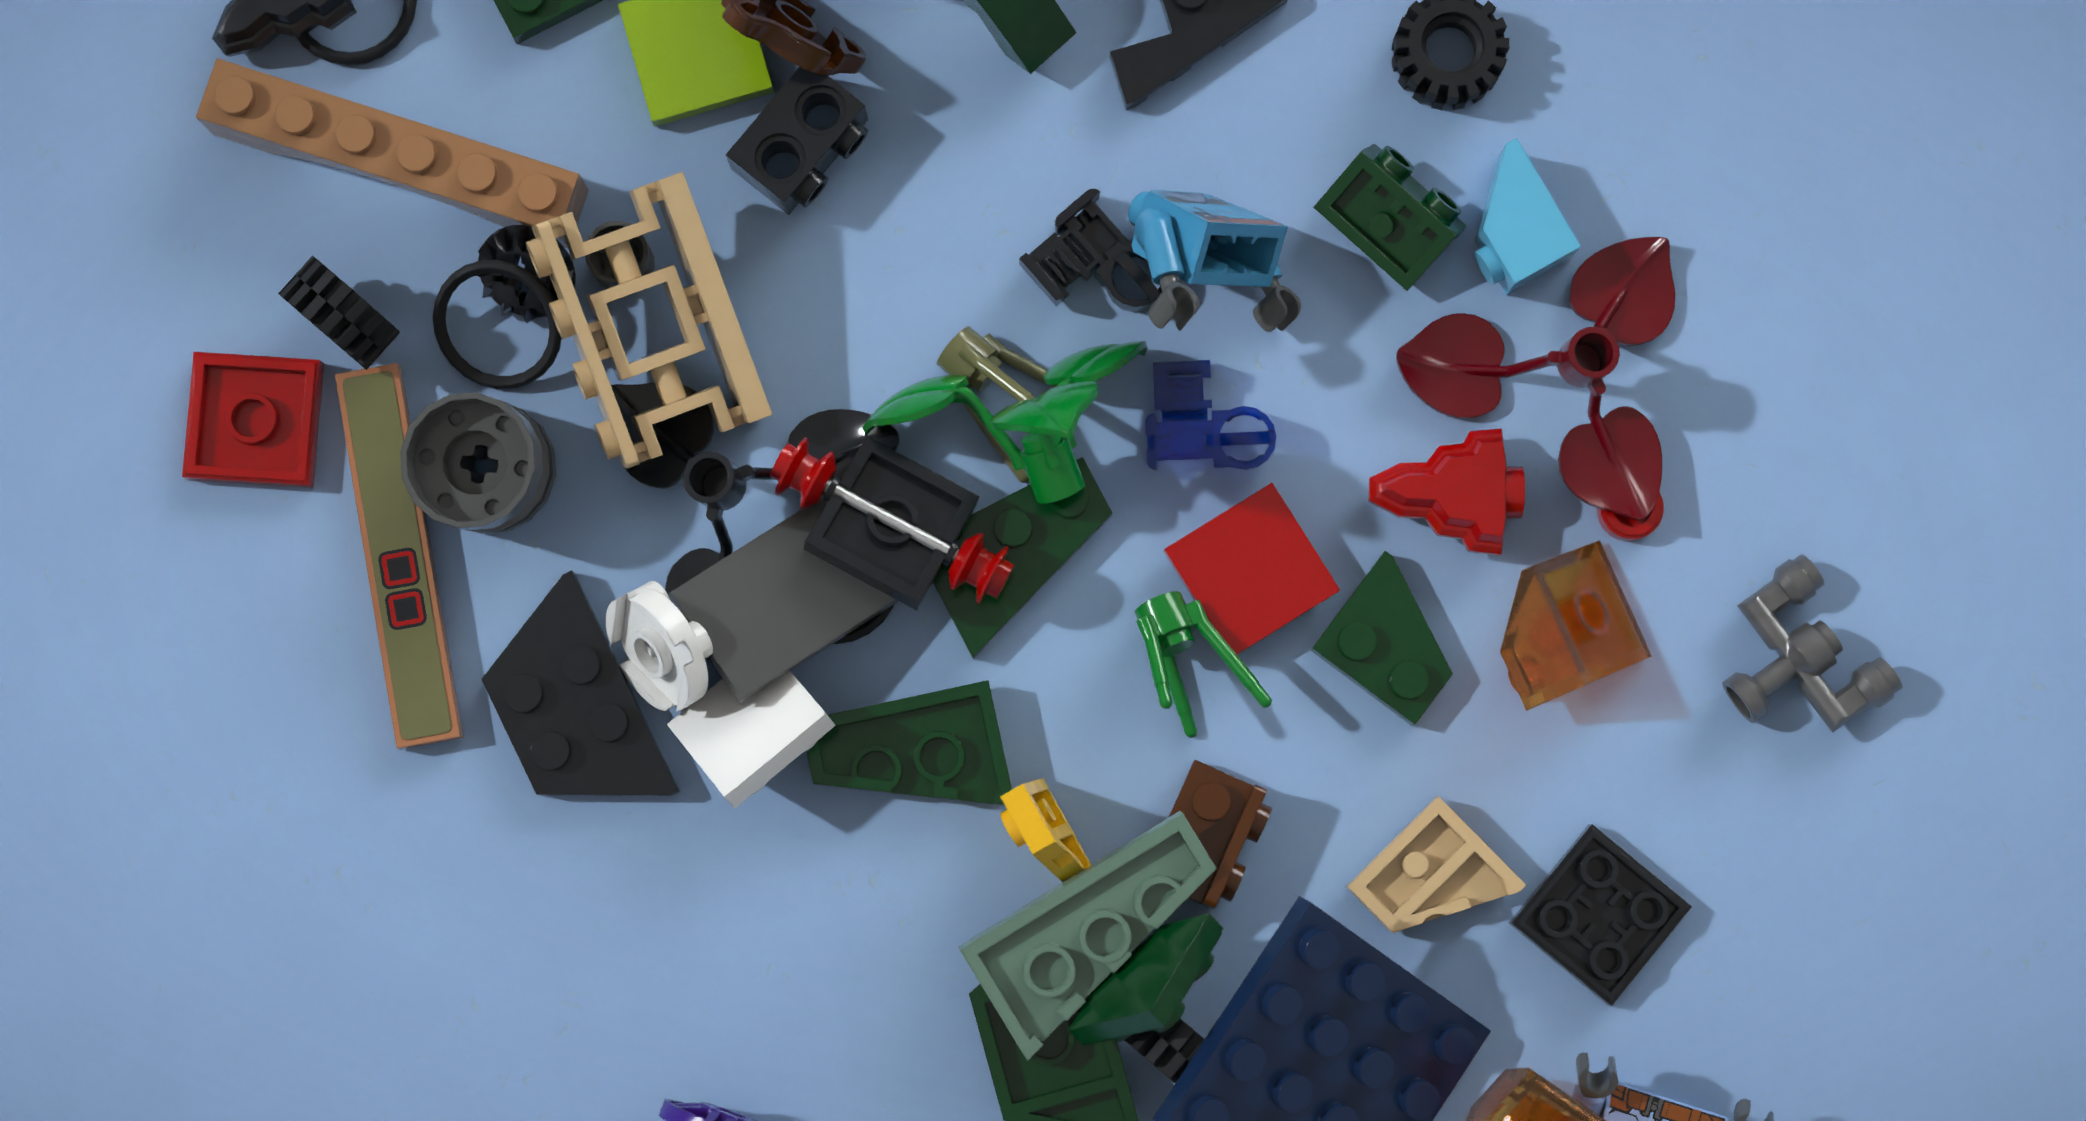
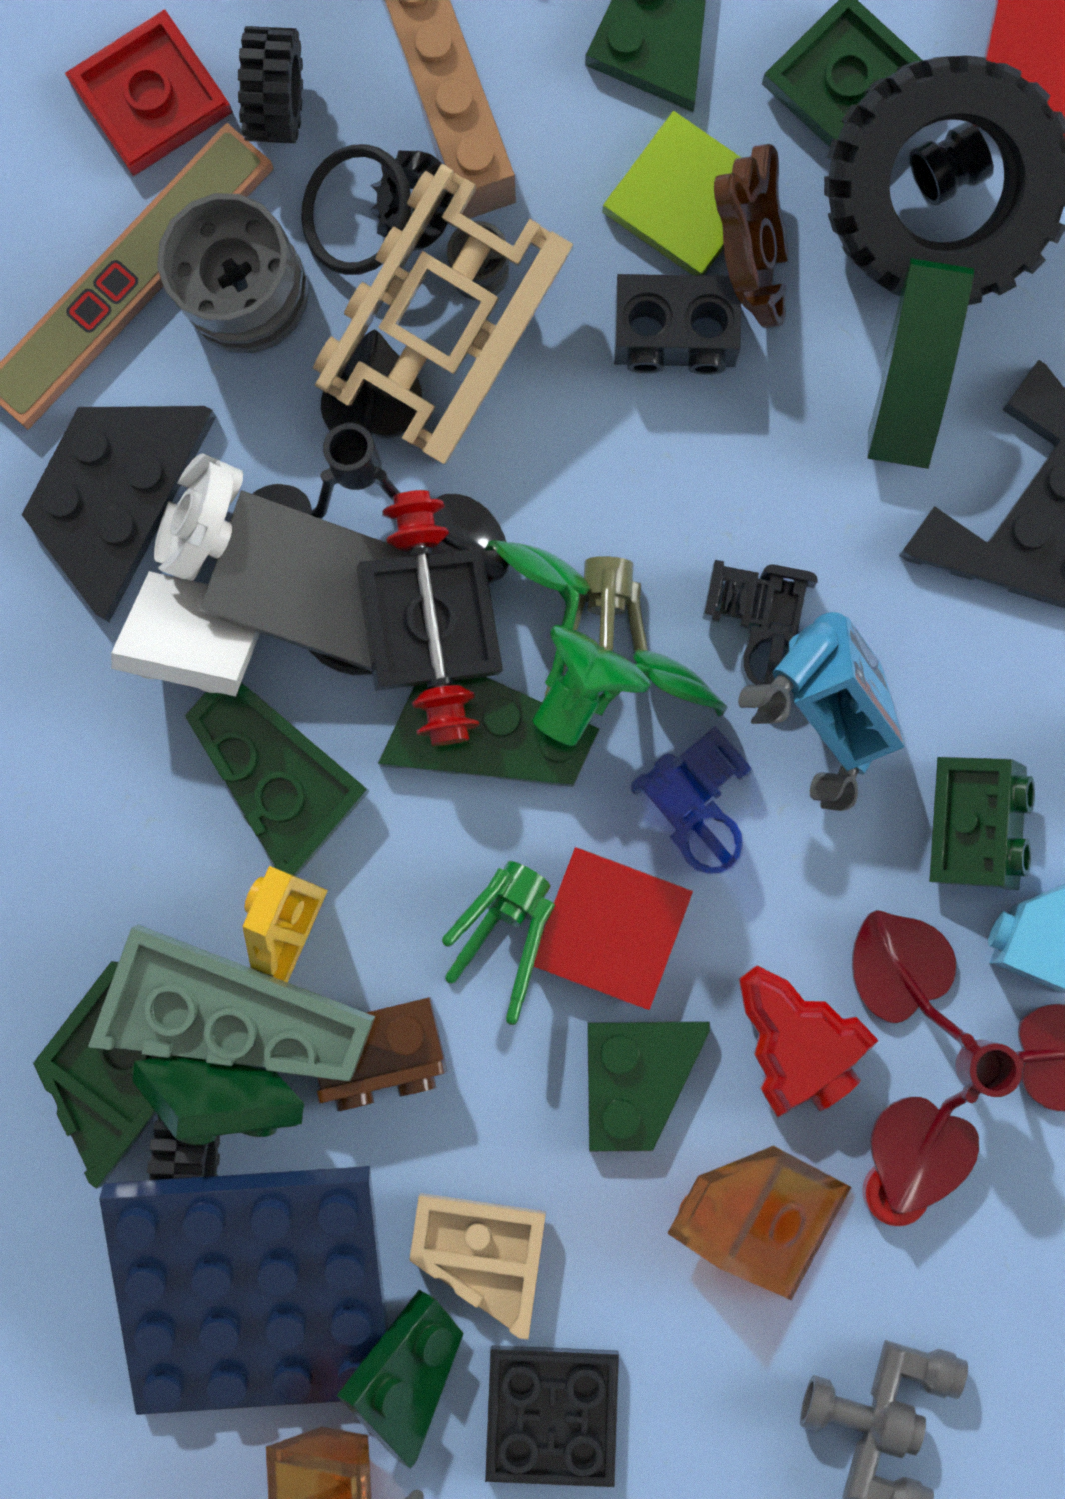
camera: 60 degrees right, 0 degrees up
(1482, 1006) = (404, 1377): none -> dark green wing

